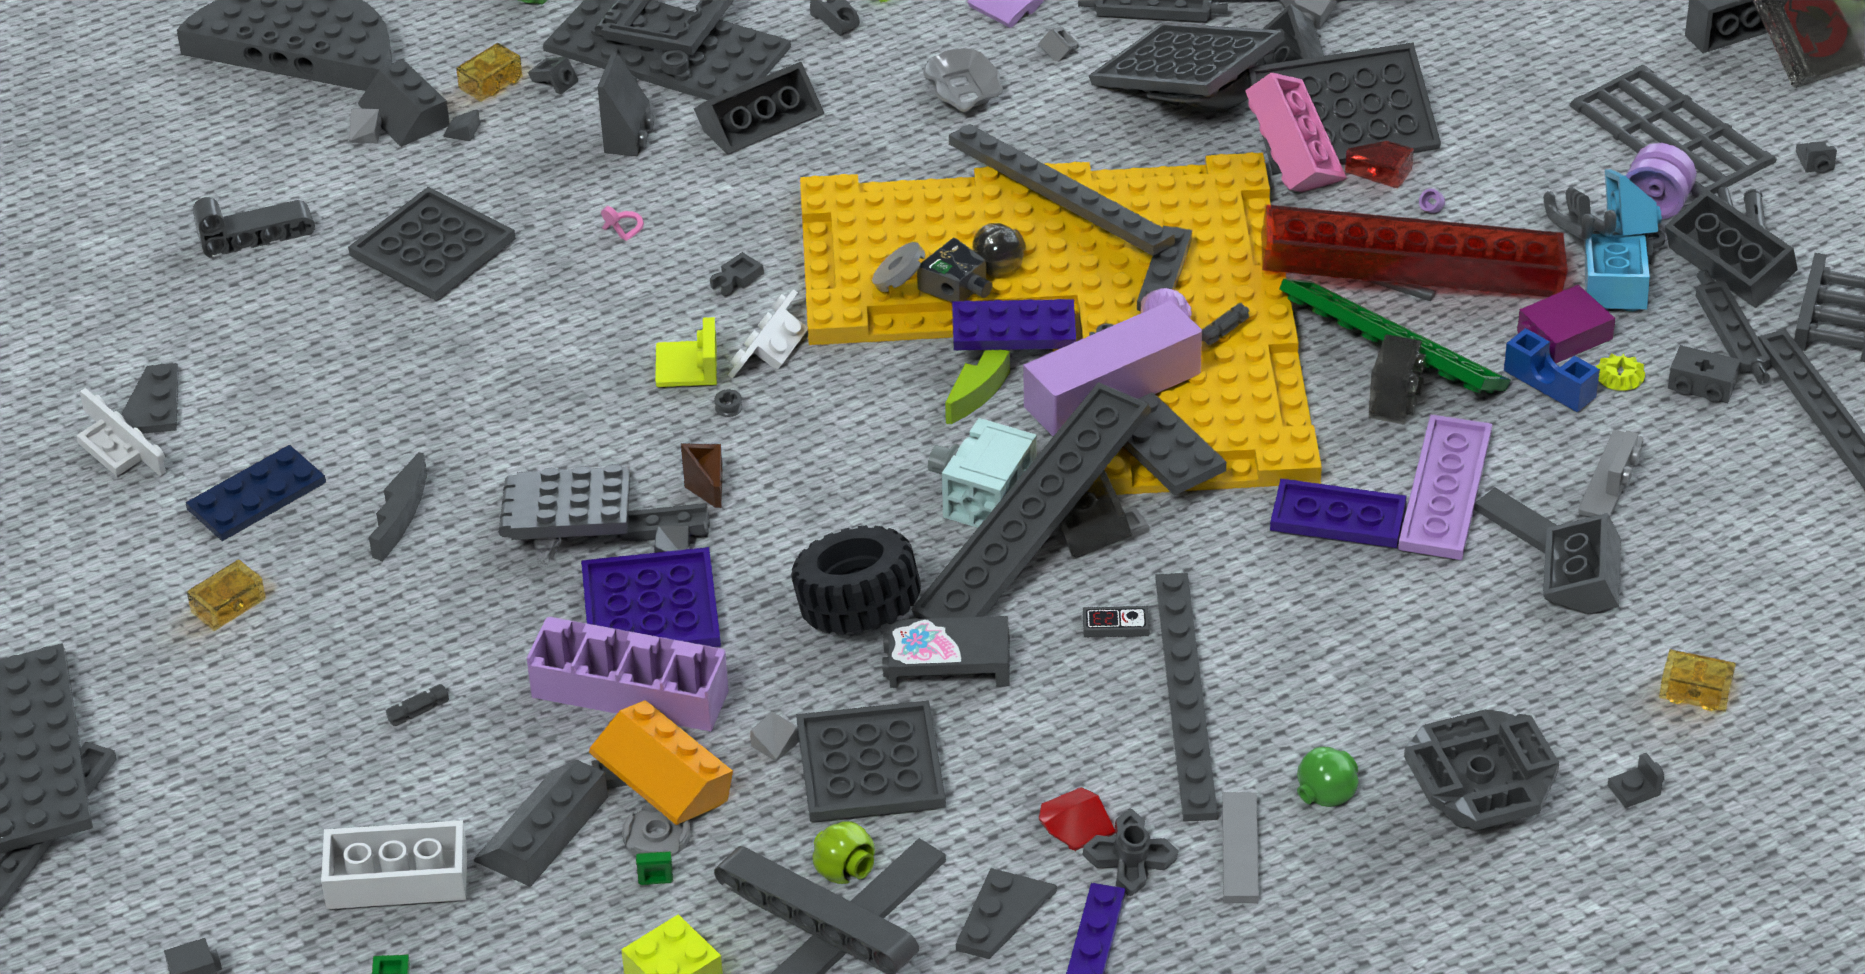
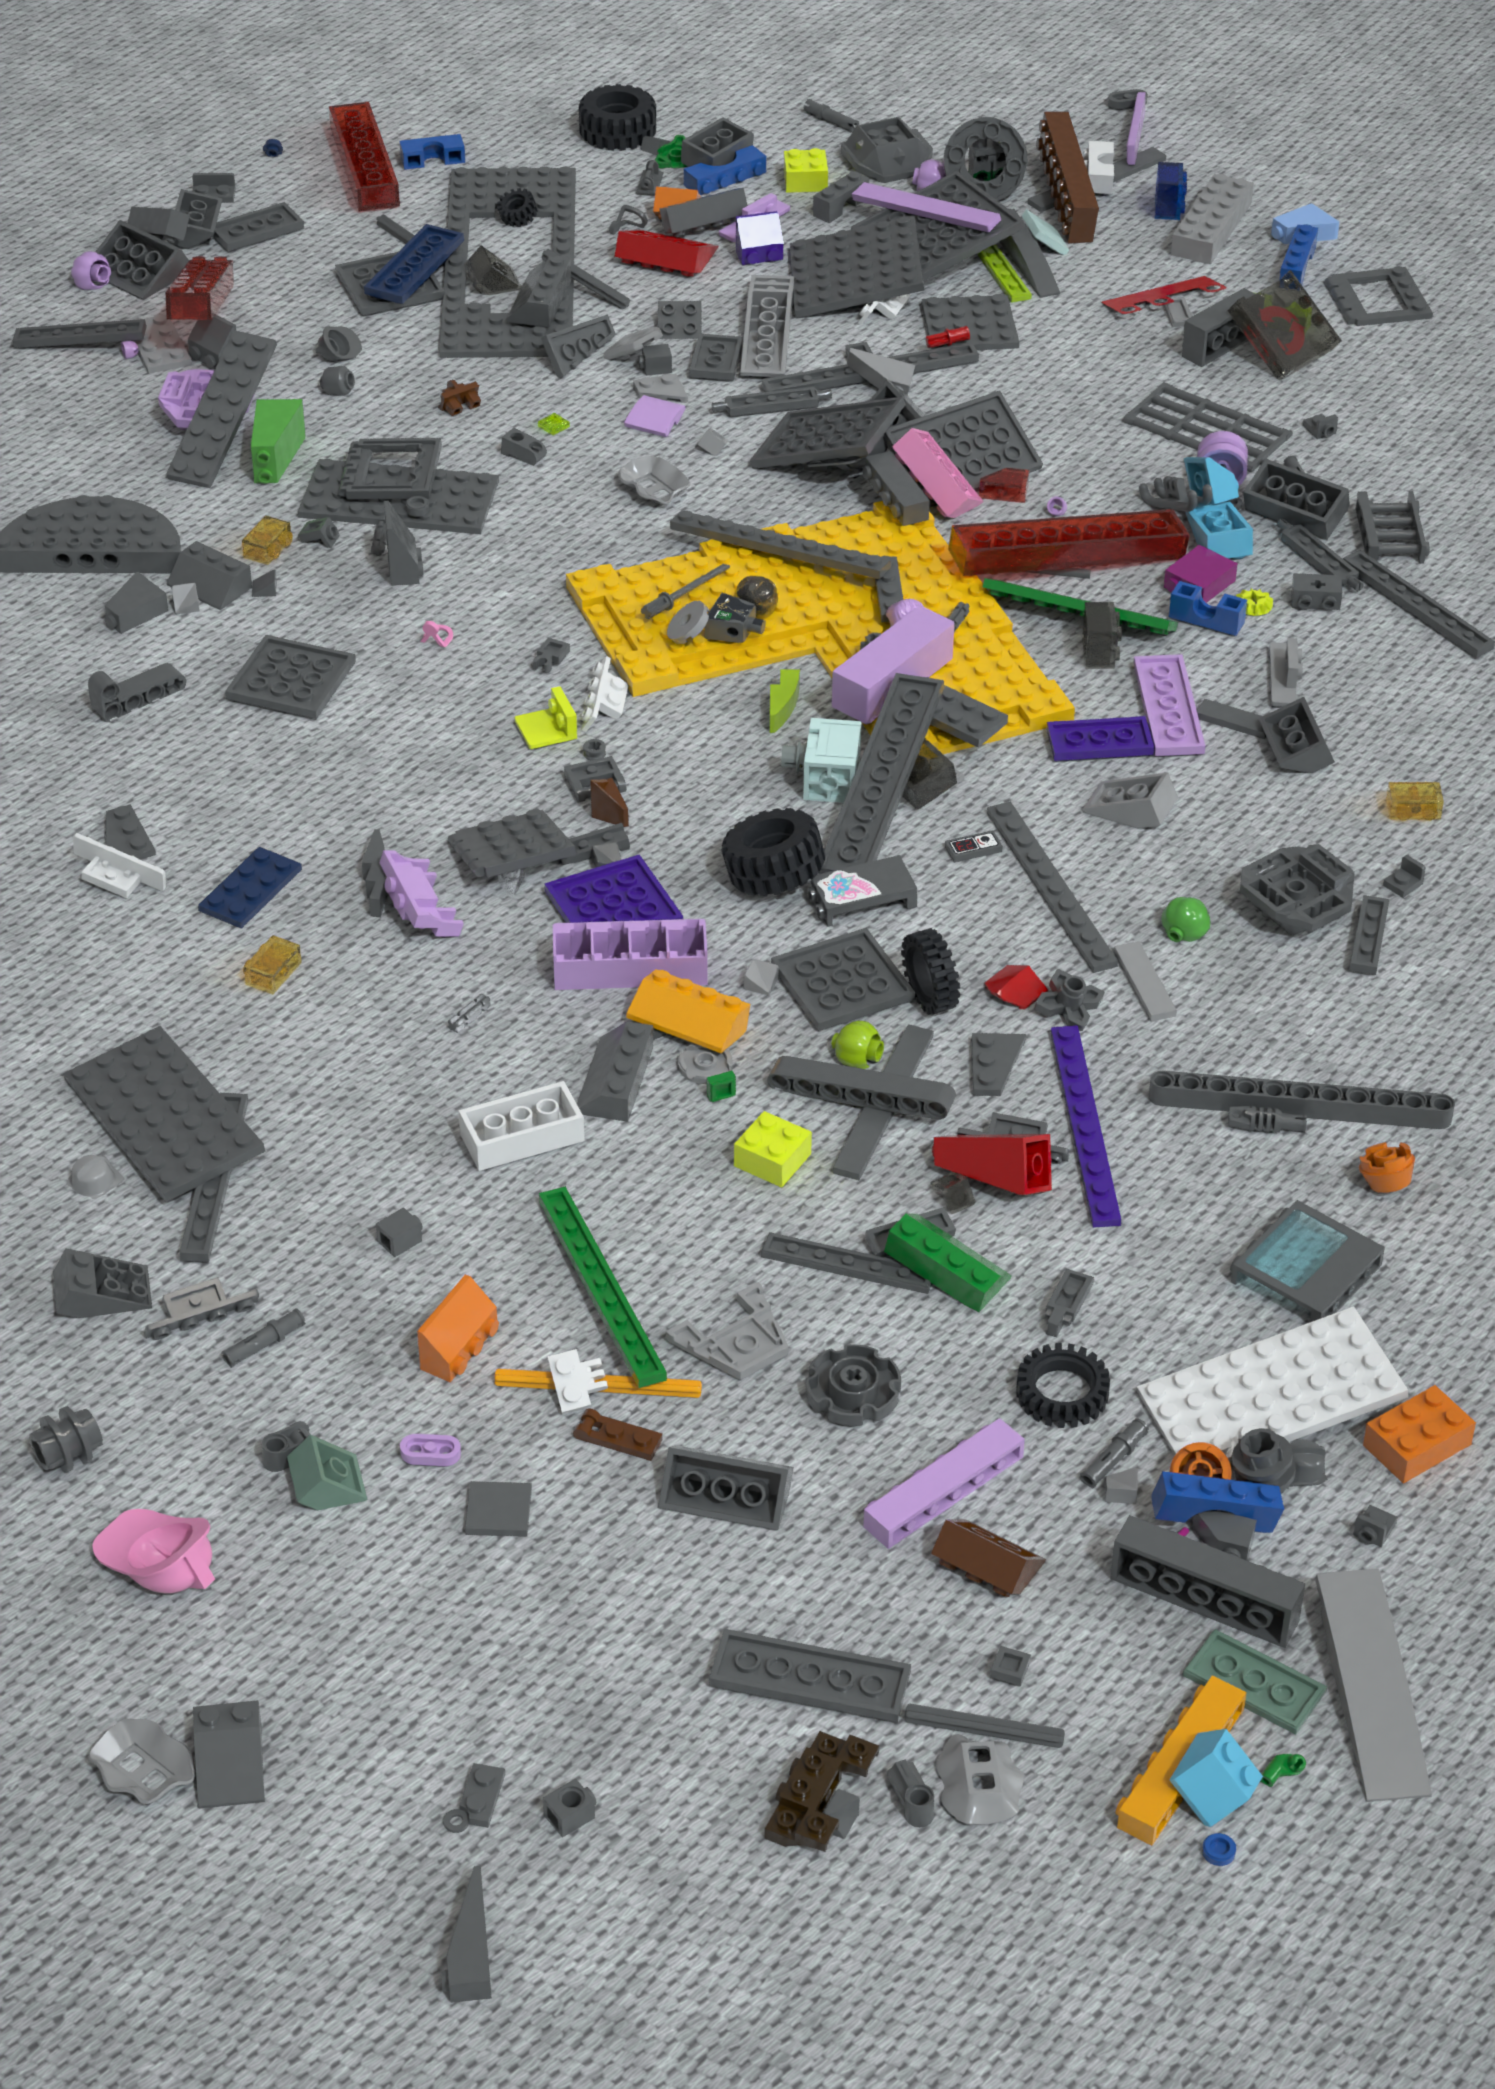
camera: 20 degrees left, 0 degrees up
(305, 122) = (135, 604): none -> dark grey slope
(418, 543) = (414, 896): none -> lavender bracket
(712, 430) = (580, 775): none -> dark grey plate
(759, 109) = (503, 530): dark grey slope -> none
(890, 235) = (665, 601): none -> dark grey piece
(963, 778) = (930, 971): none -> black tyre
(1013, 324) = (794, 649): dark purple plate -> none
(1234, 143) = (896, 488): none -> dark grey brick
(1339, 604) = (1134, 800): none -> light grey slope
(1553, 850) = (1369, 935): none -> dark grey plate

